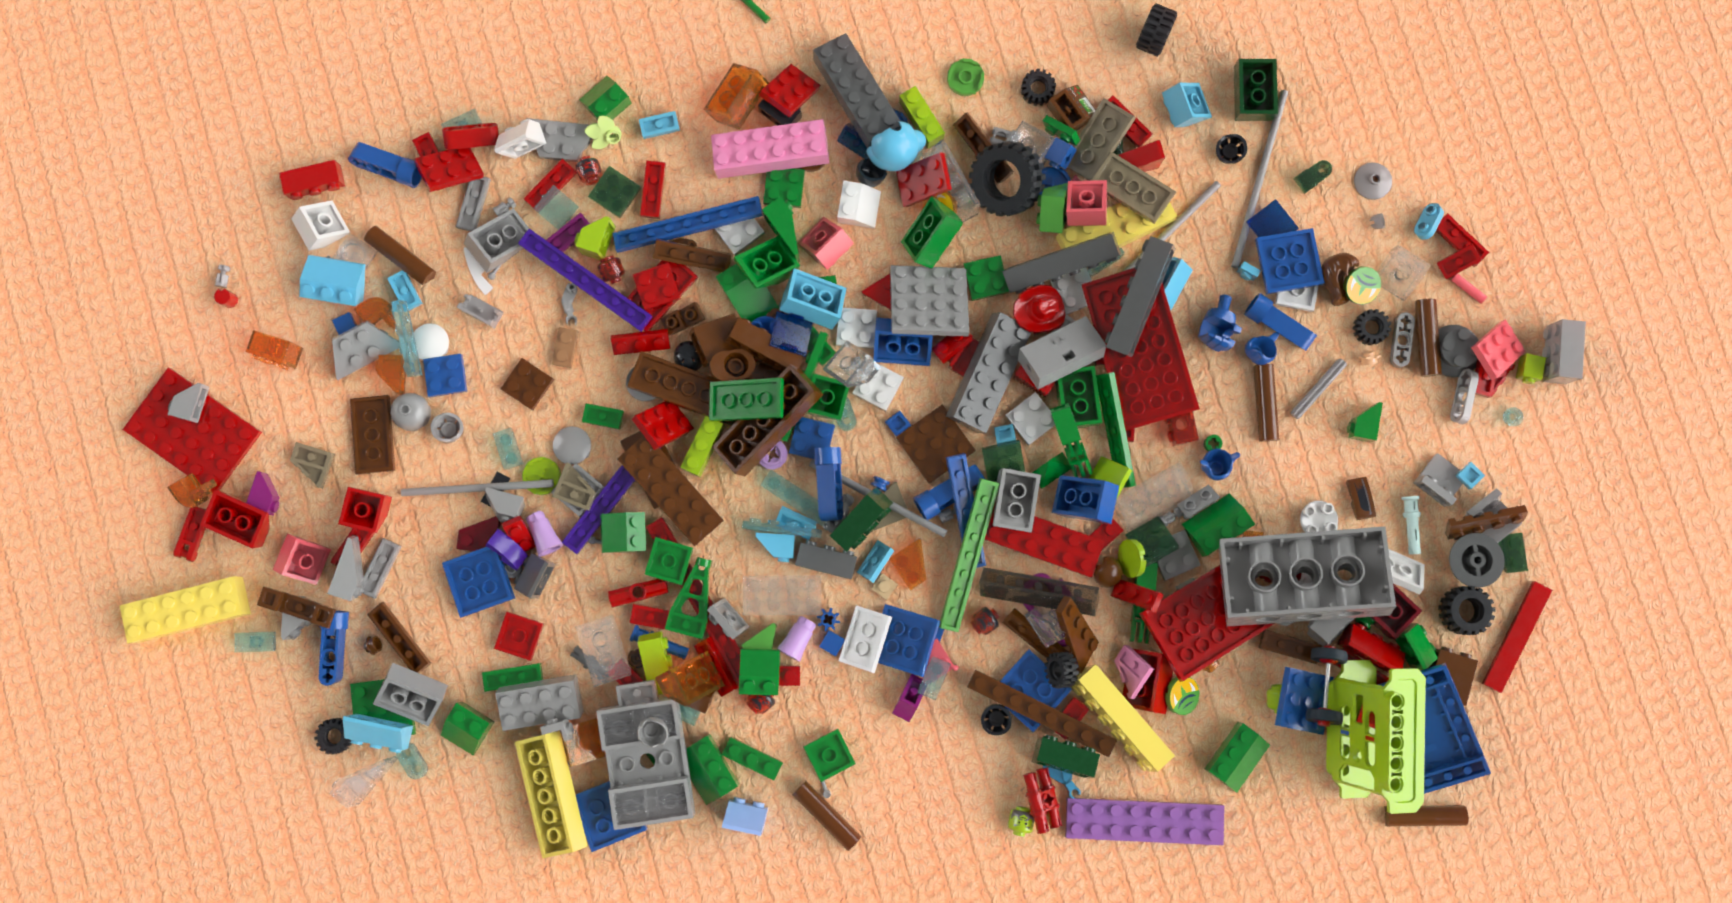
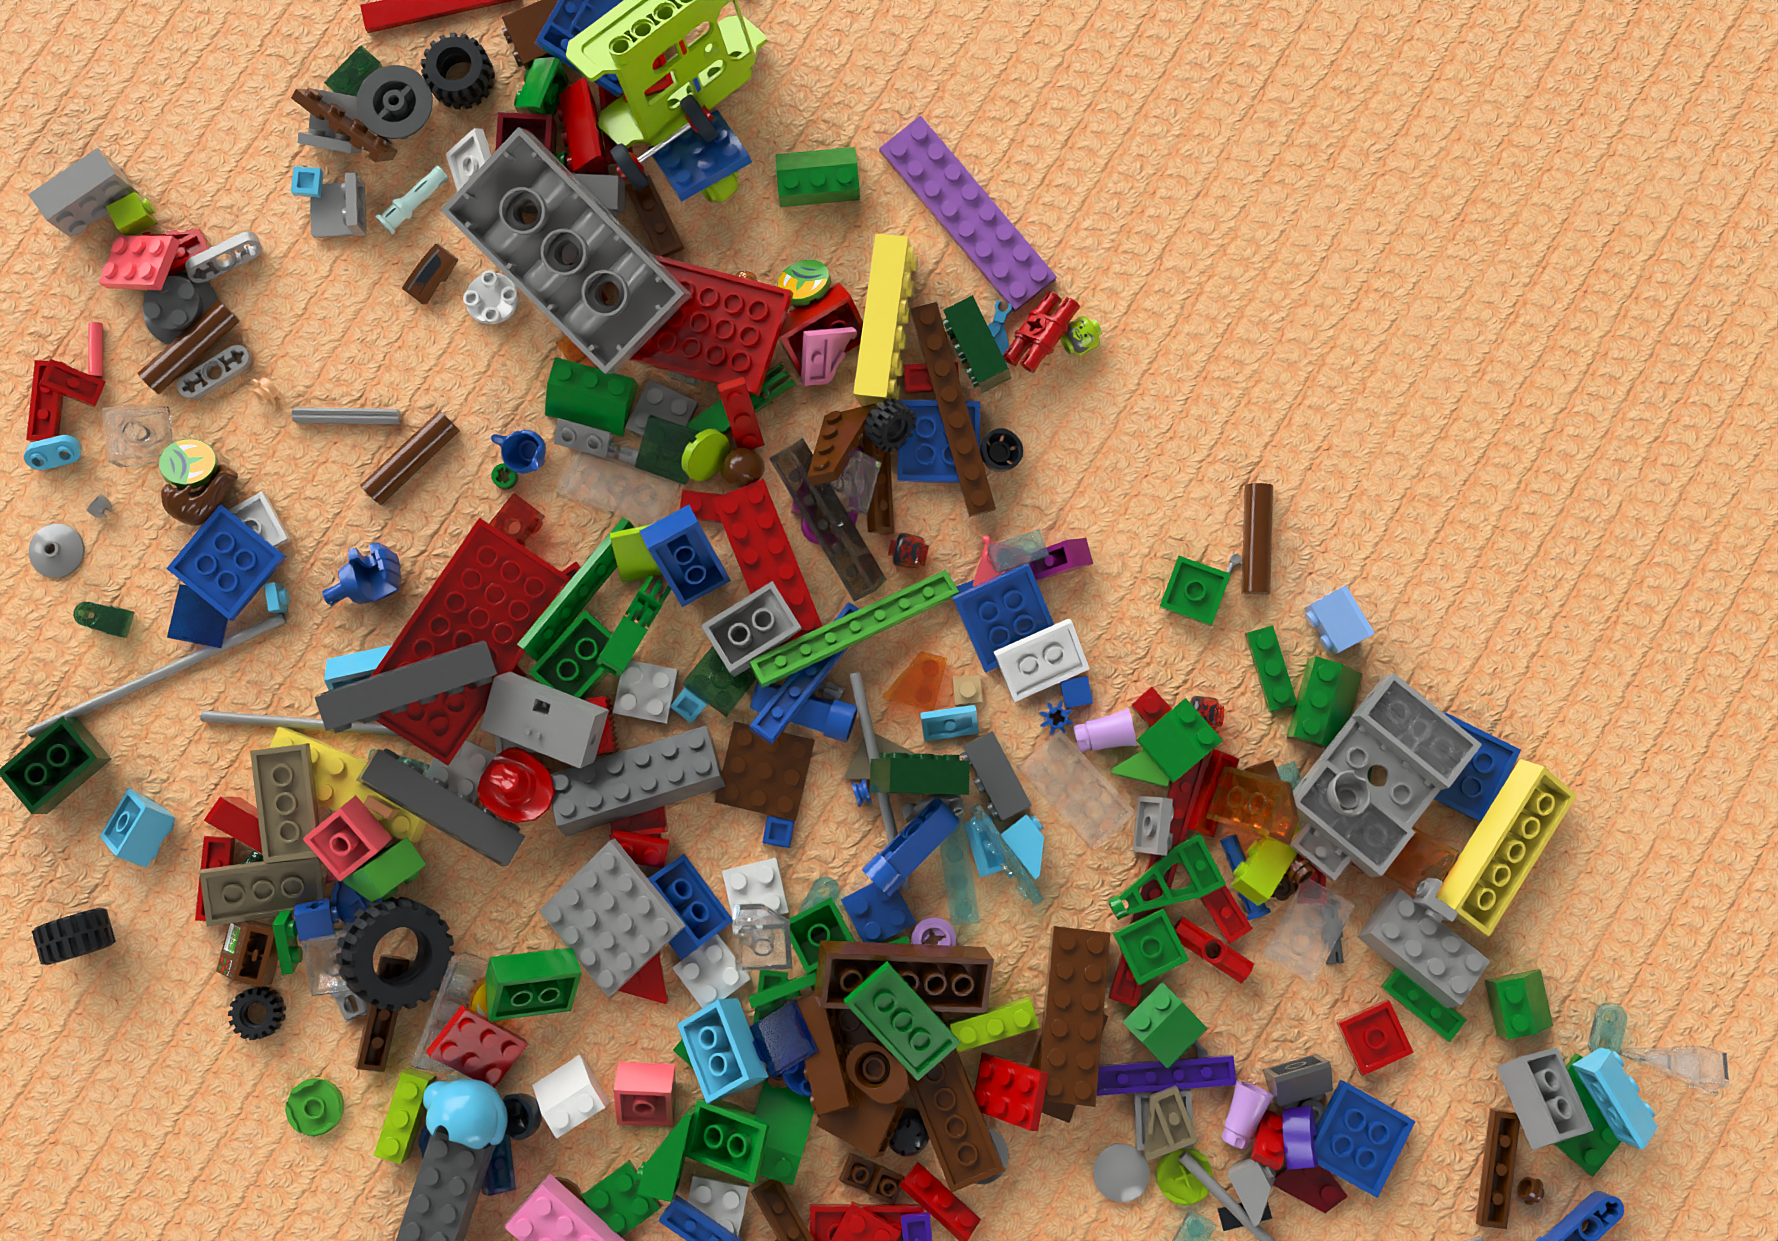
camera: 135 degrees left, 0 degrees up
(322, 737) = (1676, 1148): black tyre -> none
(602, 416) = (1059, 1167): green plate -> none
(636, 673) = (1300, 871): none -> reddish brown plate
(986, 278) = (530, 878): green plate -> none
(1052, 469) = (682, 621): green slope -> none
(1089, 232) = (381, 807): none -> nougat tile
(1230, 150) = (151, 734): black helmet -> none
(1262, 310) = (309, 546): blue beam -> none
(1262, 349) = (353, 510): blue hair -> none
(1366, 424) = (342, 334): green slope -> none
(1380, 319) = (214, 407): black tyre -> none
(1518, 416) = (197, 186): clear light blue plate -> none

